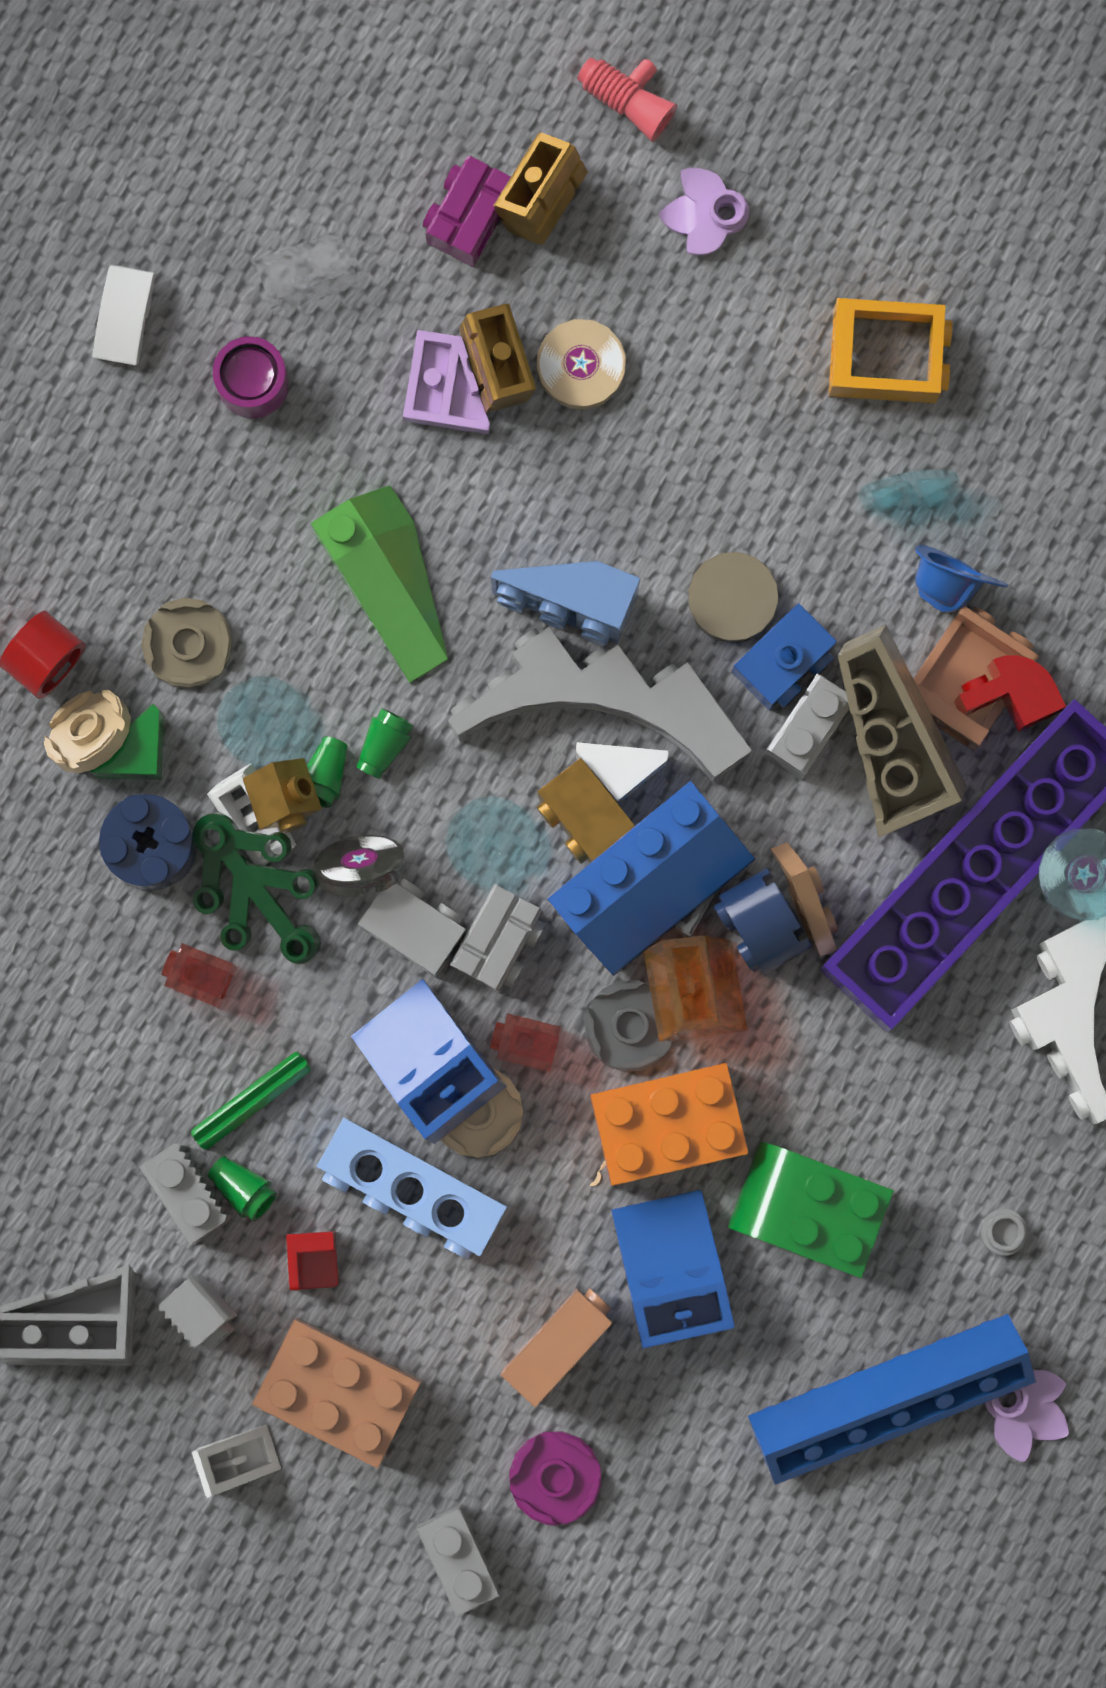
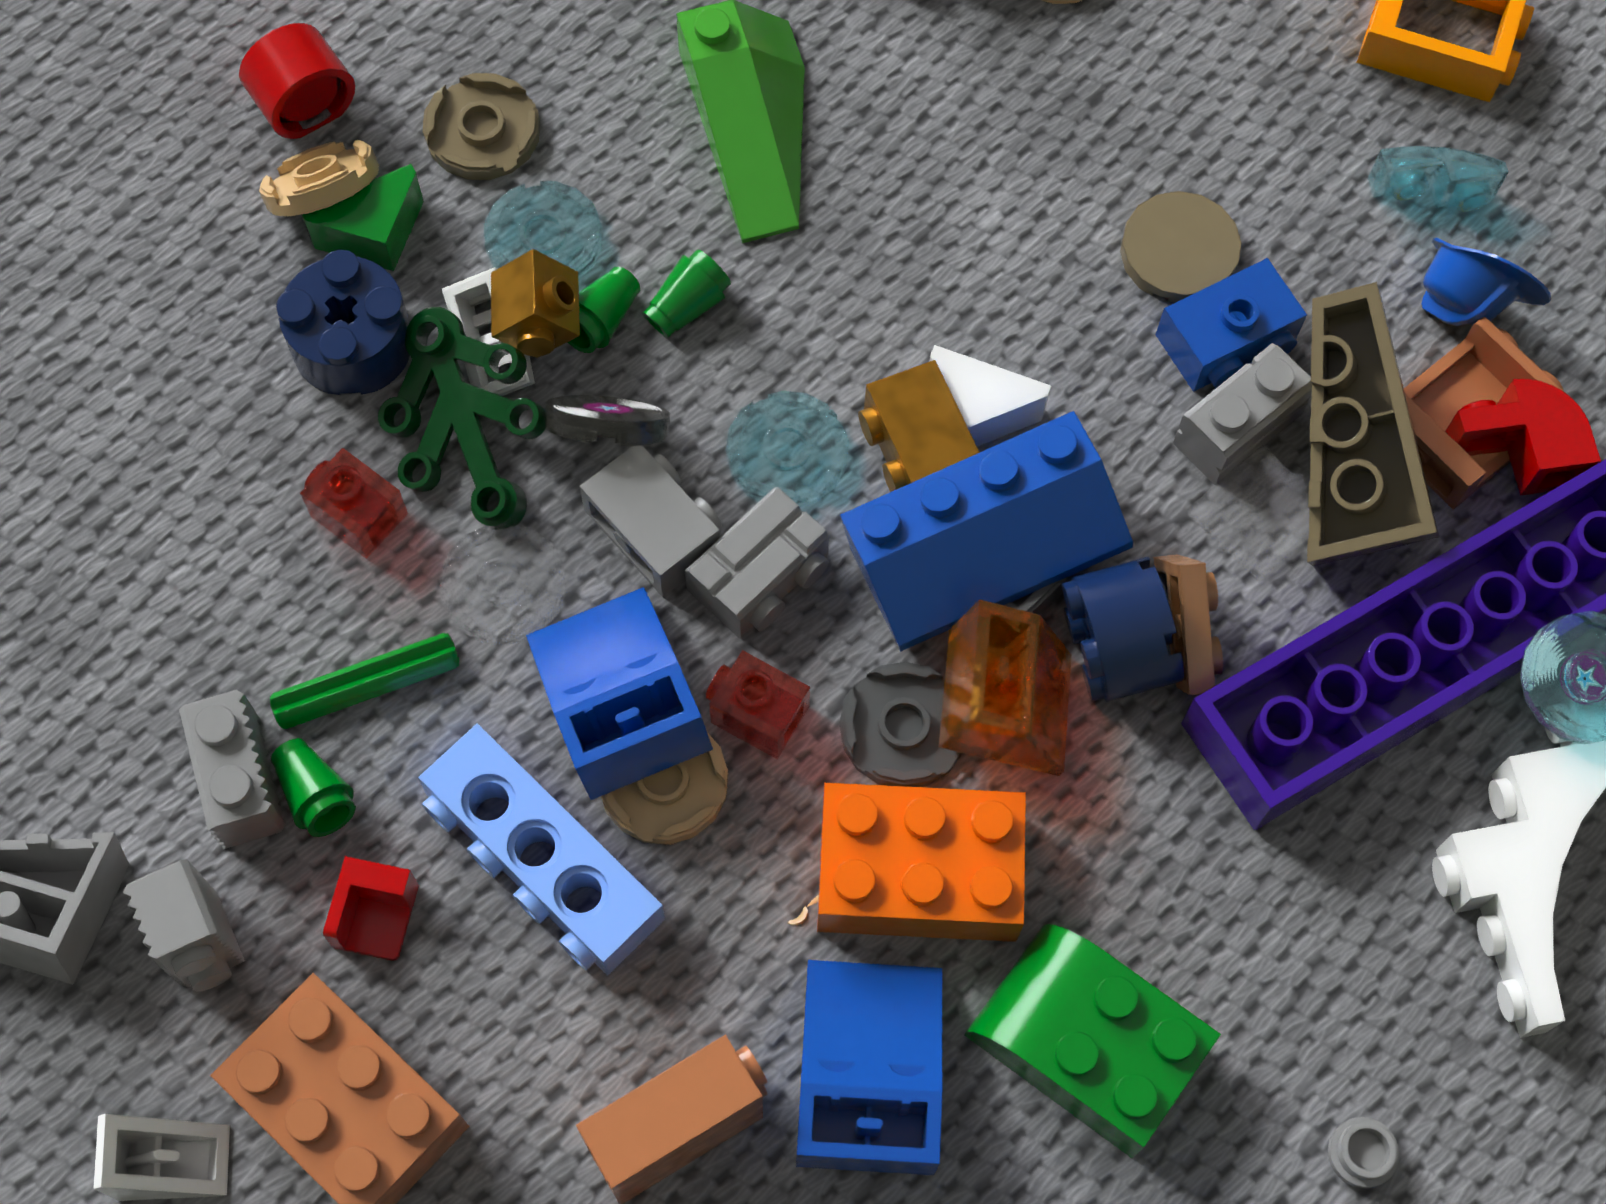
camera: 15 degrees right, 15 degrees down
(549, 678) = (995, 298): light grey arch -> none
(574, 594) = (976, 173): medium blue slope -> none

